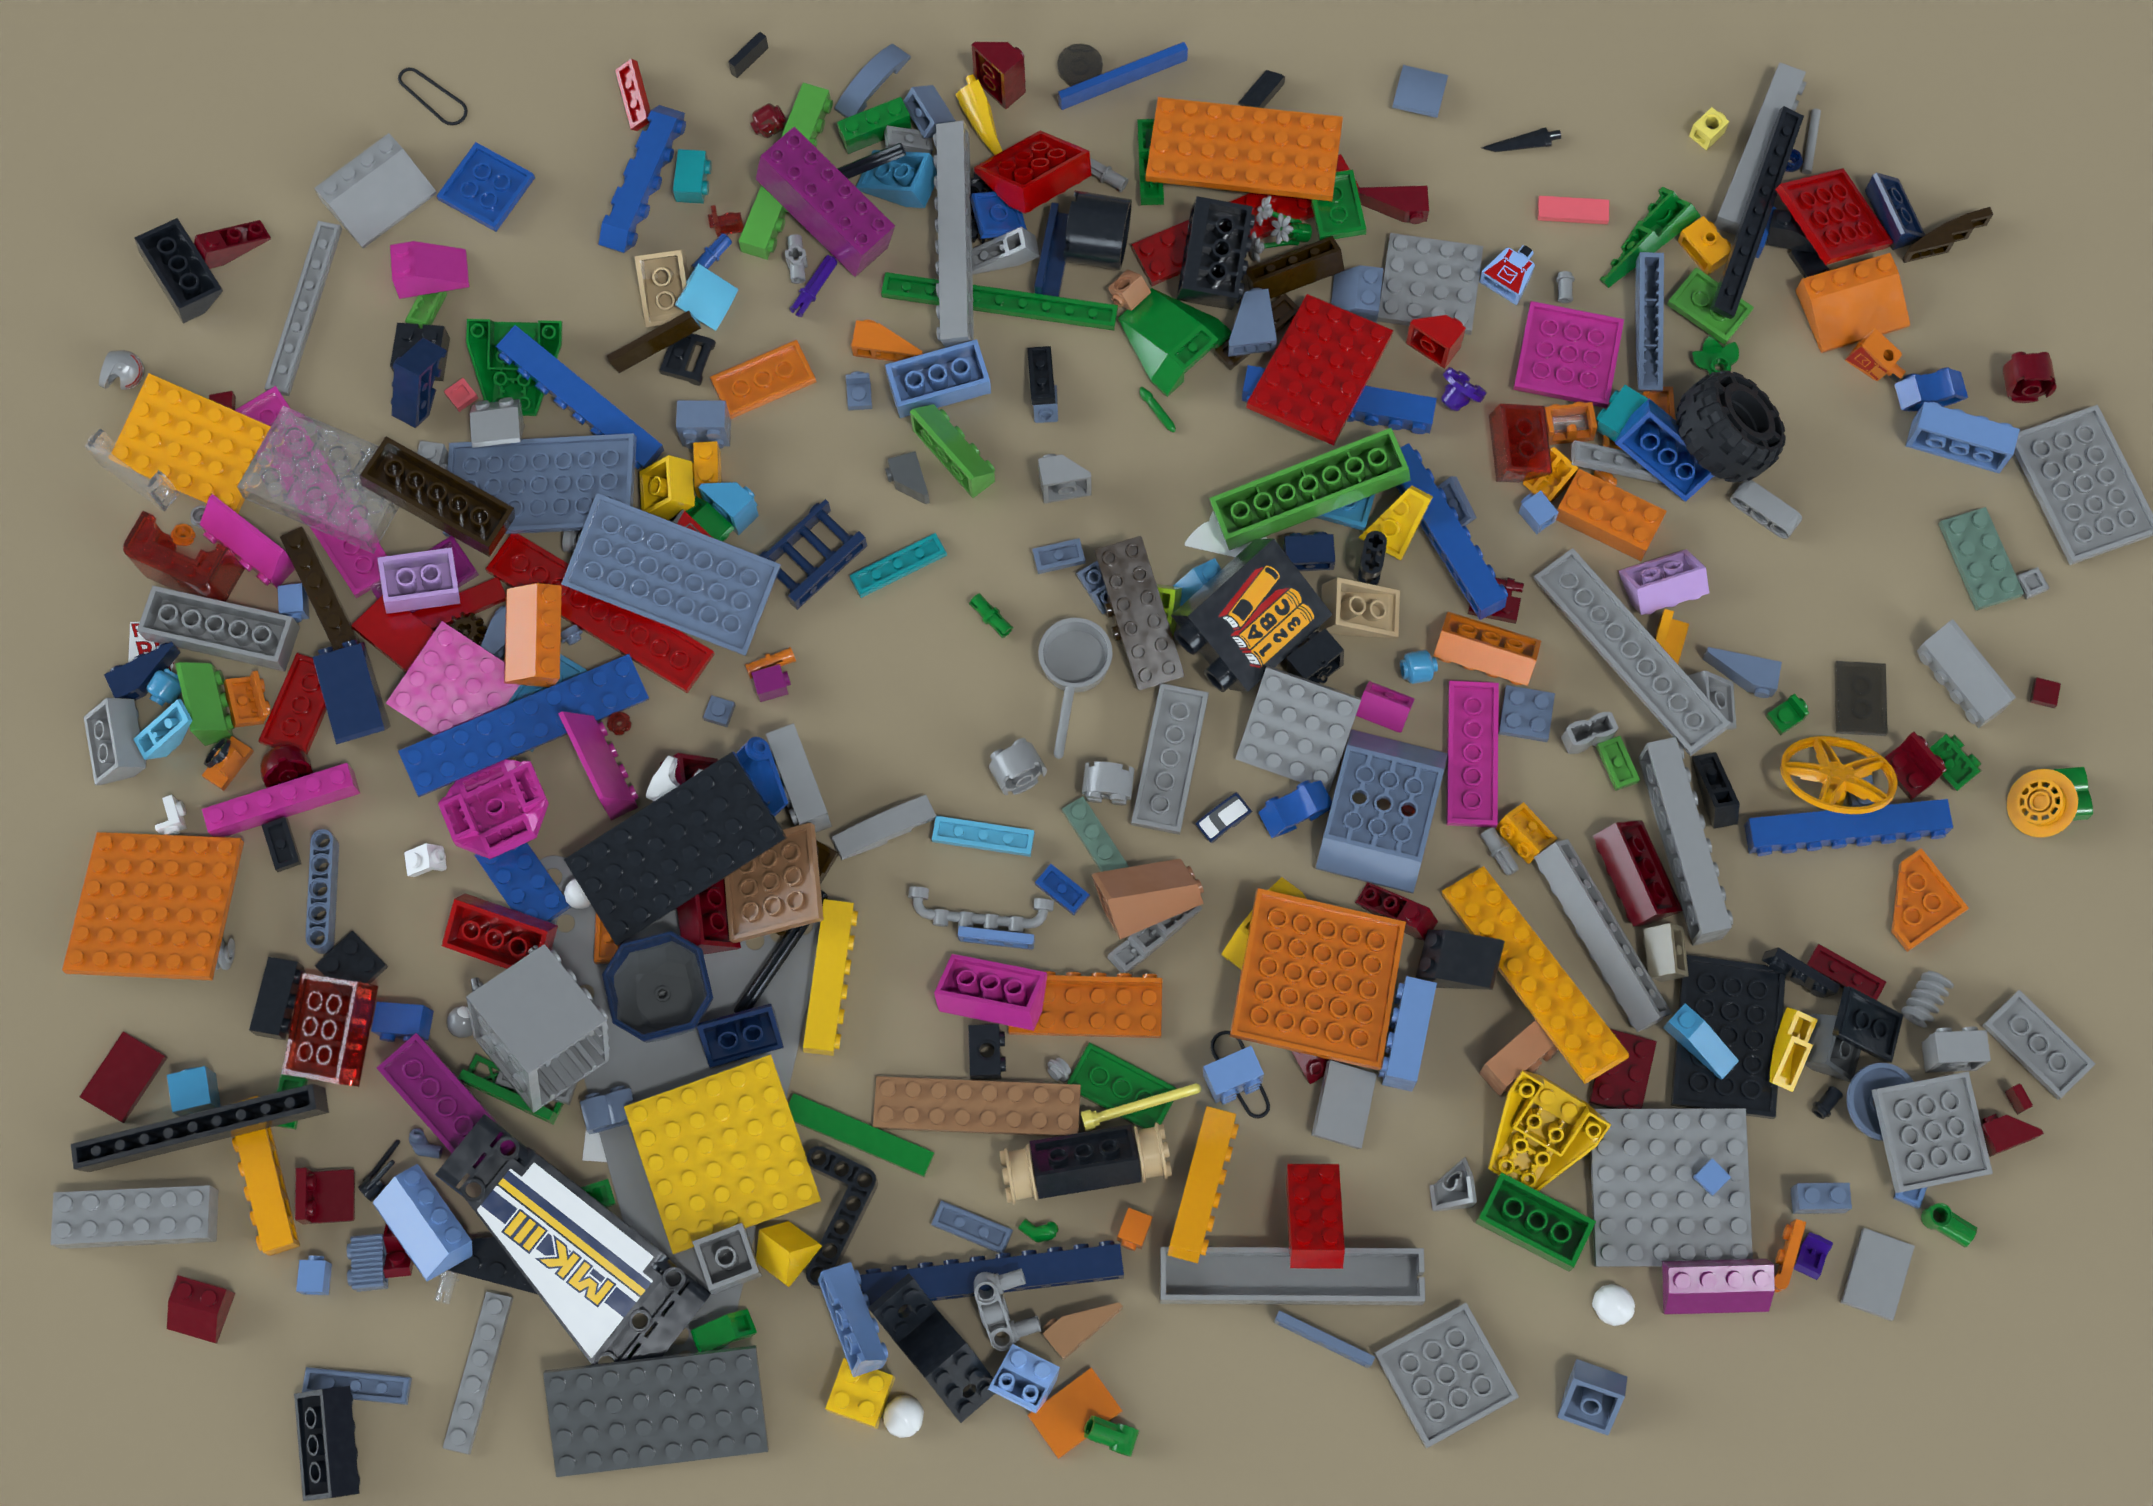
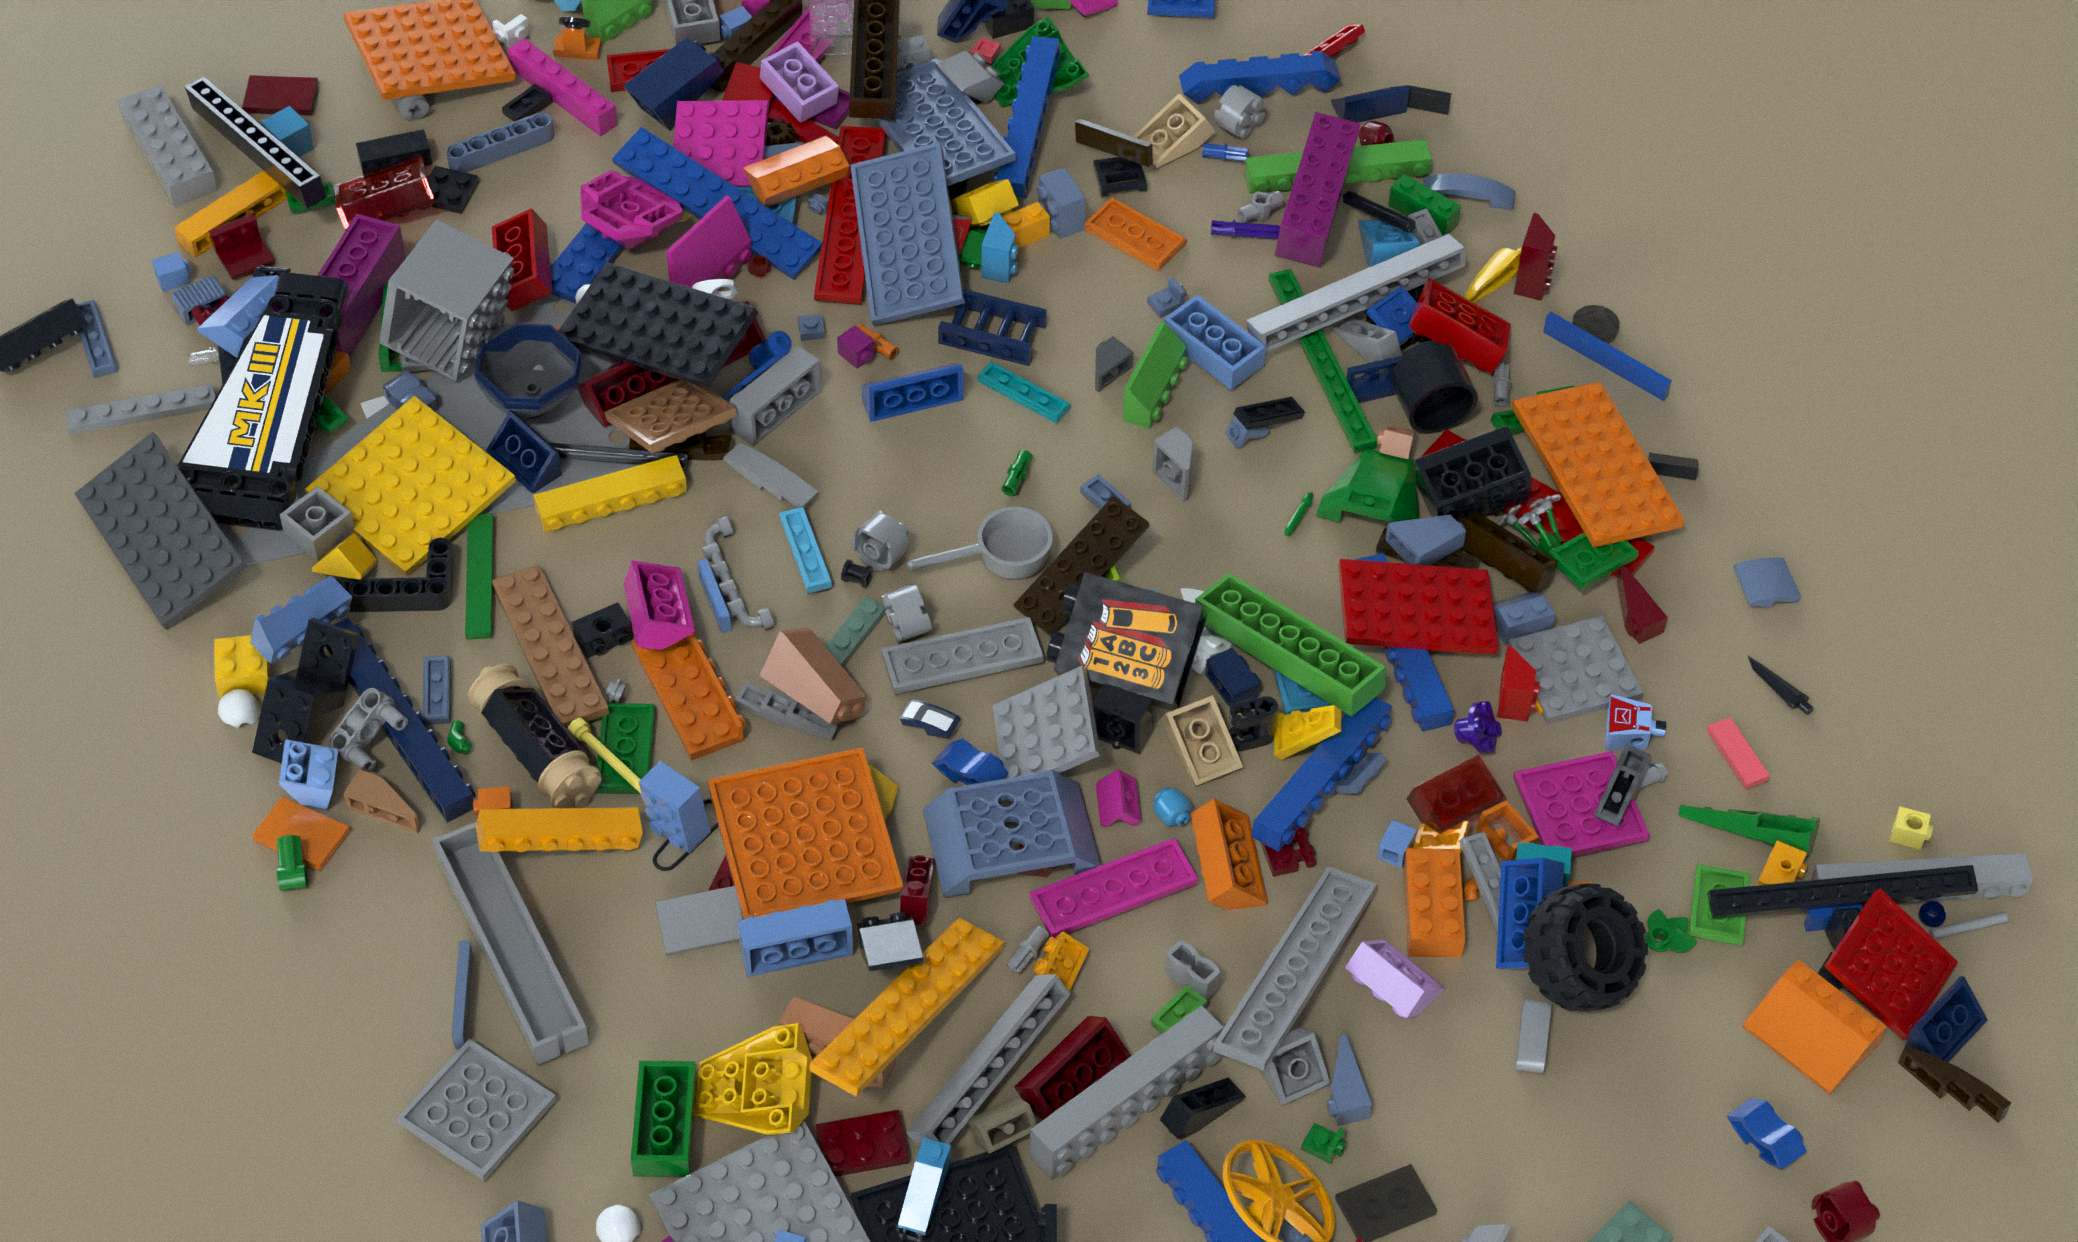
camera: 60 degrees right, 20 degrees down
(198, 1309) = (111, 214): dark red slope -> none
(247, 700) = (635, 32): orange bracket -> none
(284, 764) = (593, 71): dark red cylinder -> none
(401, 1021) = (413, 228): blue brick -> none
(424, 859) = (565, 193): white bracket -> none
(678, 216) = (1239, 111): none -> light grey brick
(691, 176) = (1287, 109): teal brick -> none
(707, 297) = (1180, 160): medium azure slope -> none
(721, 102) = (1372, 104): none -> dark blue slope
(723, 1331) = (255, 550): green slope -> none
(728, 223) = (1258, 144): clear red bracket -> none
(851, 658) = (913, 392): none -> blue slope
(880, 343) = (1220, 287): orange slope -> none
(927, 109) = (1469, 230): sand blue brick -> none
(1034, 804) = (856, 573): none -> black bush
(1062, 889) = (789, 617): blue plate -> none
(1315, 1216) = (572, 926): red brick -> none
(1454, 1189) = (665, 1046): light grey slope -> none
(1526, 713) = (1184, 918): sand blue plate -> none
(1576, 311) = (1623, 785): none -> black slope
(1649, 320) = (1665, 852): sand blue slope -> none
(1671, 634) = (1337, 1006): light orange panel -> none
(1876, 357) = (1766, 1064): orange torso -> none
(1962, 437) = (1731, 1175): medium blue brick -> none

